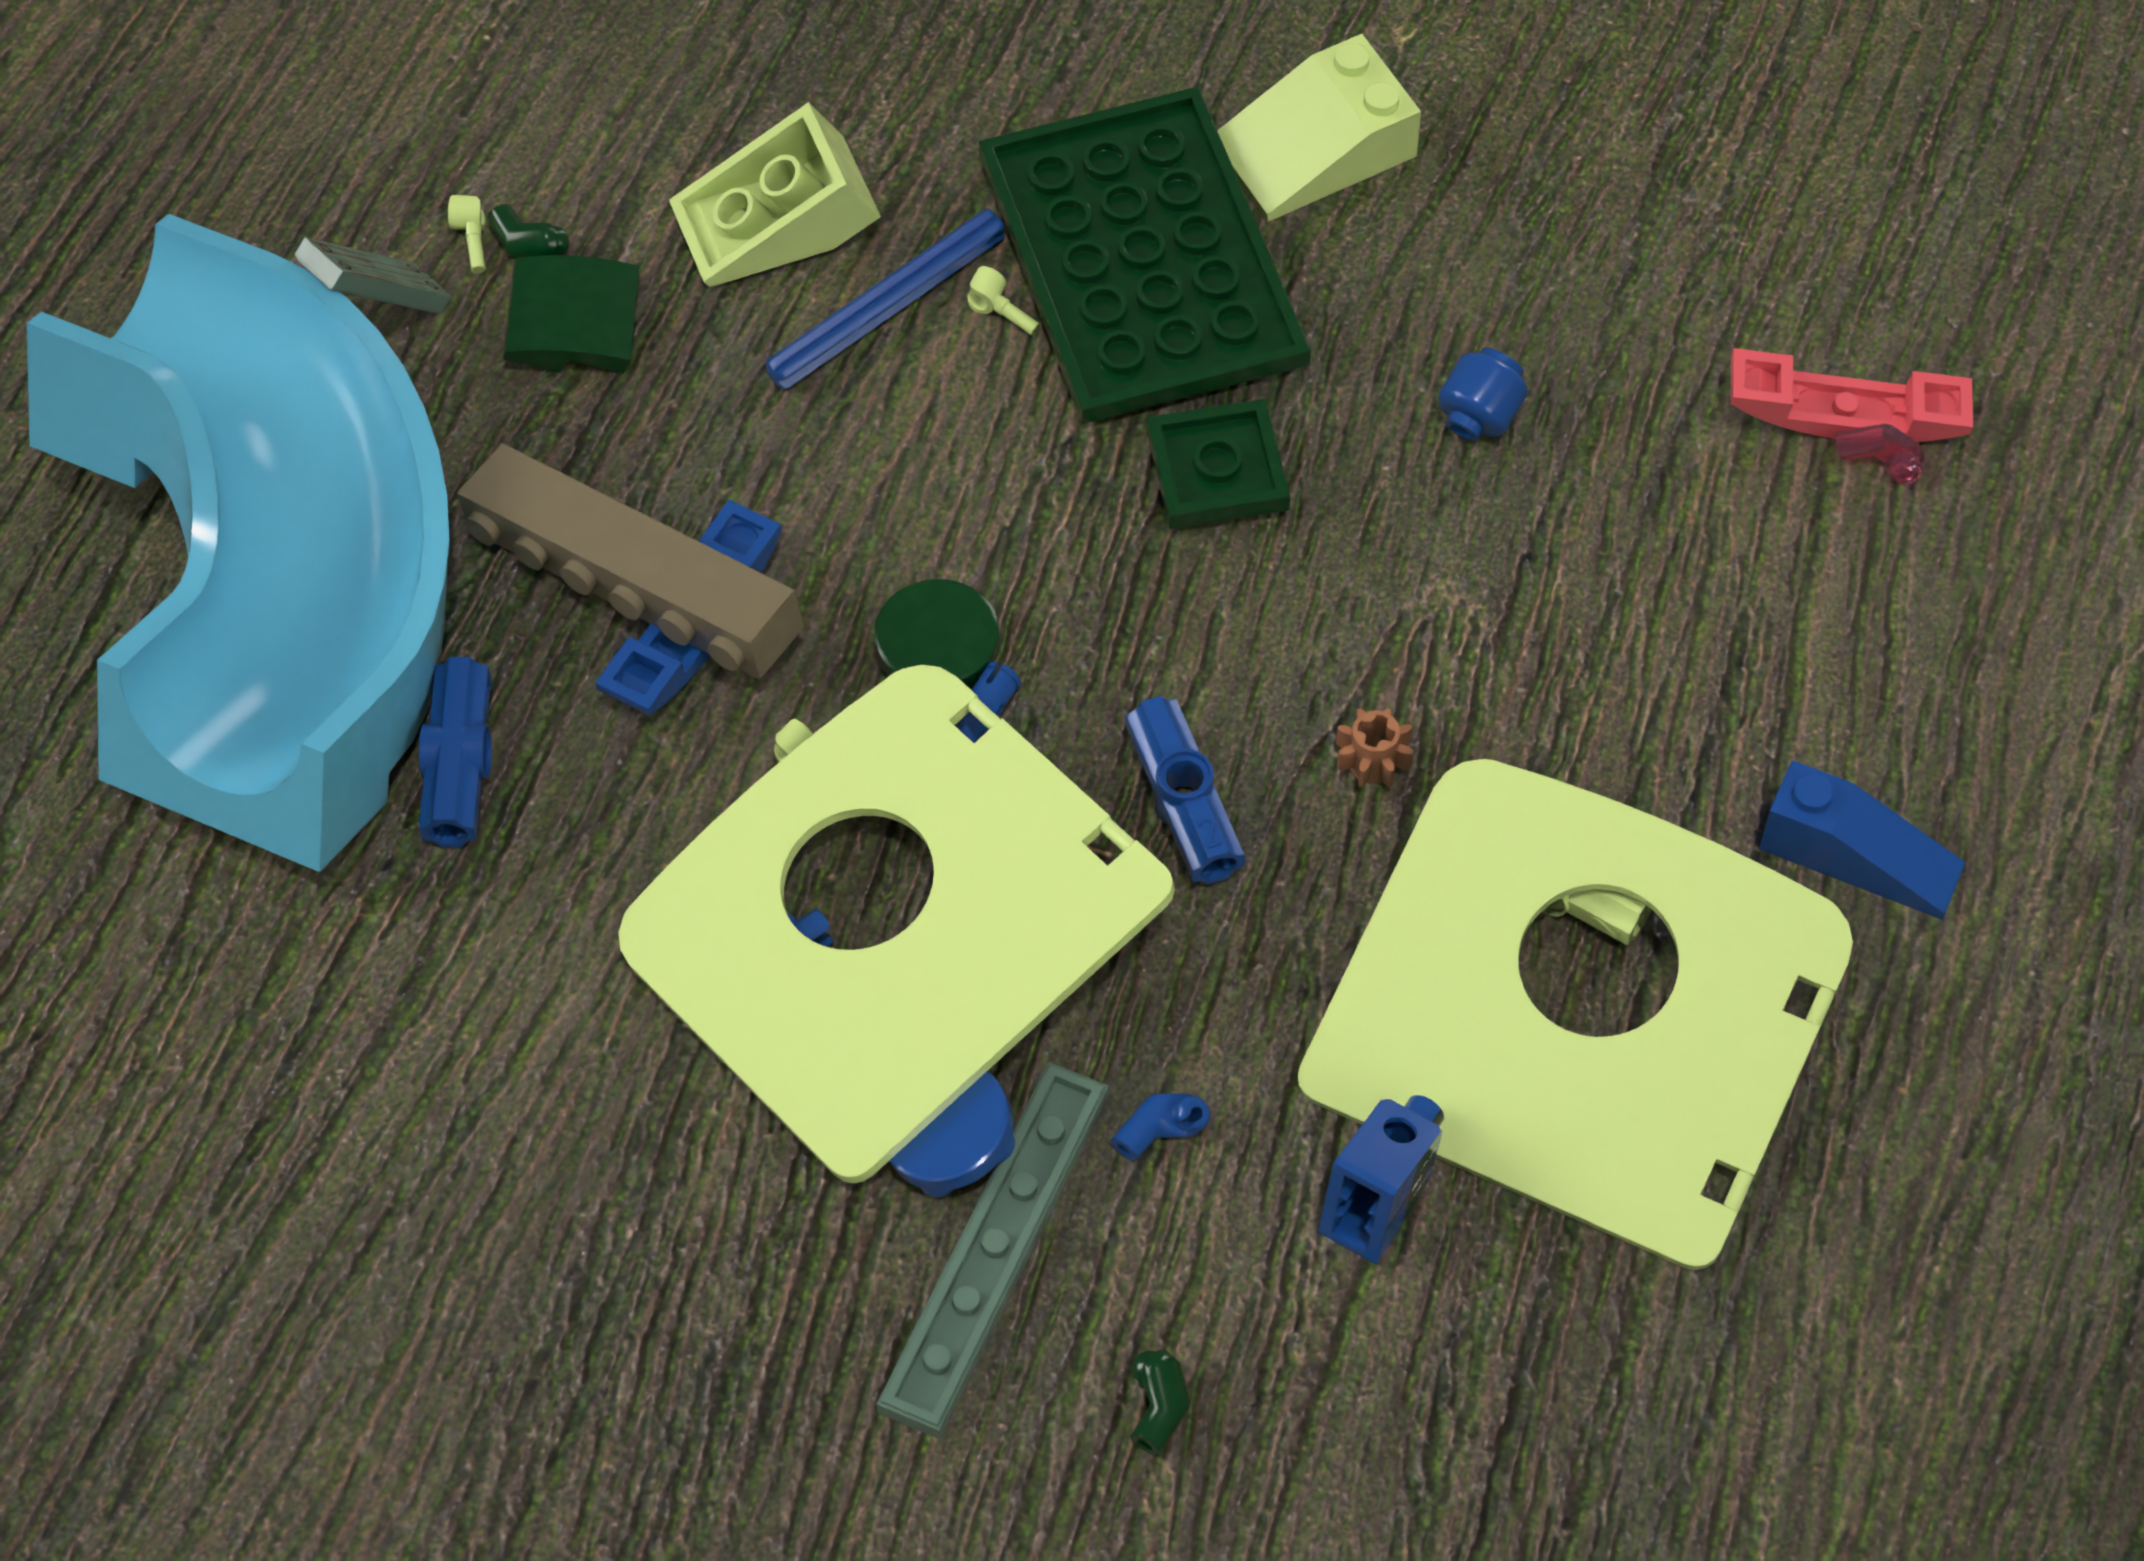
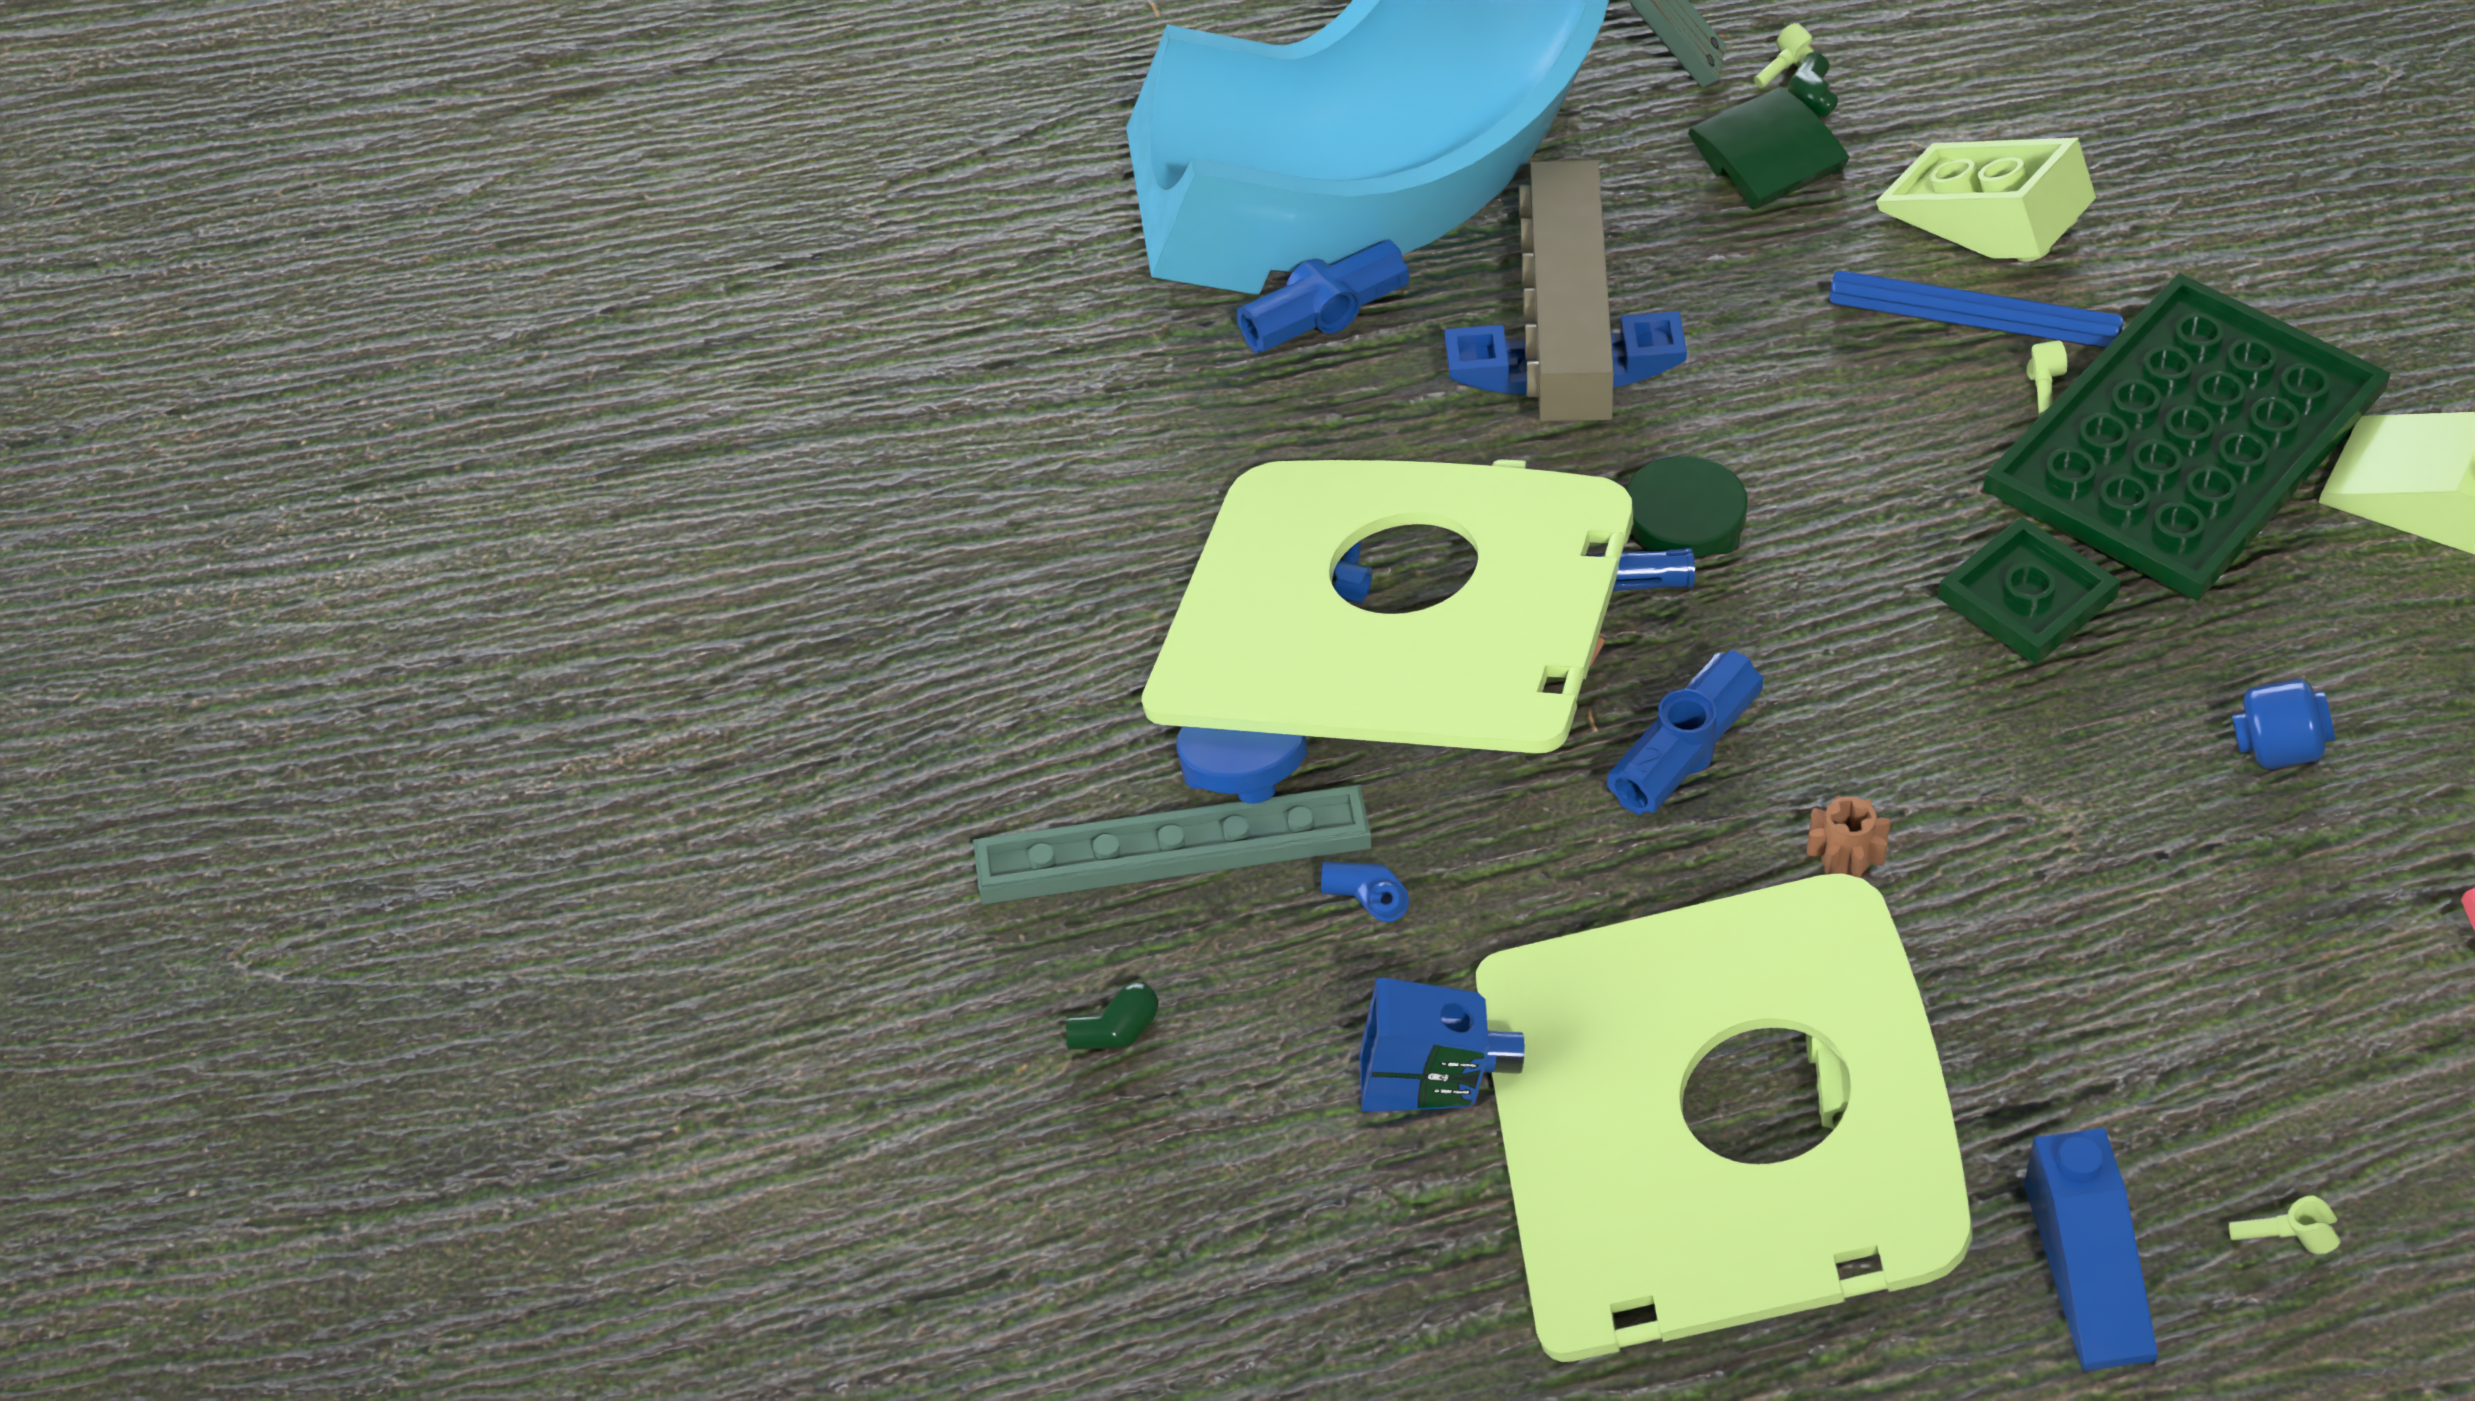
camera: 60 degrees right, 10 degrees down
(1916, 708) = (2305, 1219): none -> yellowish green hand

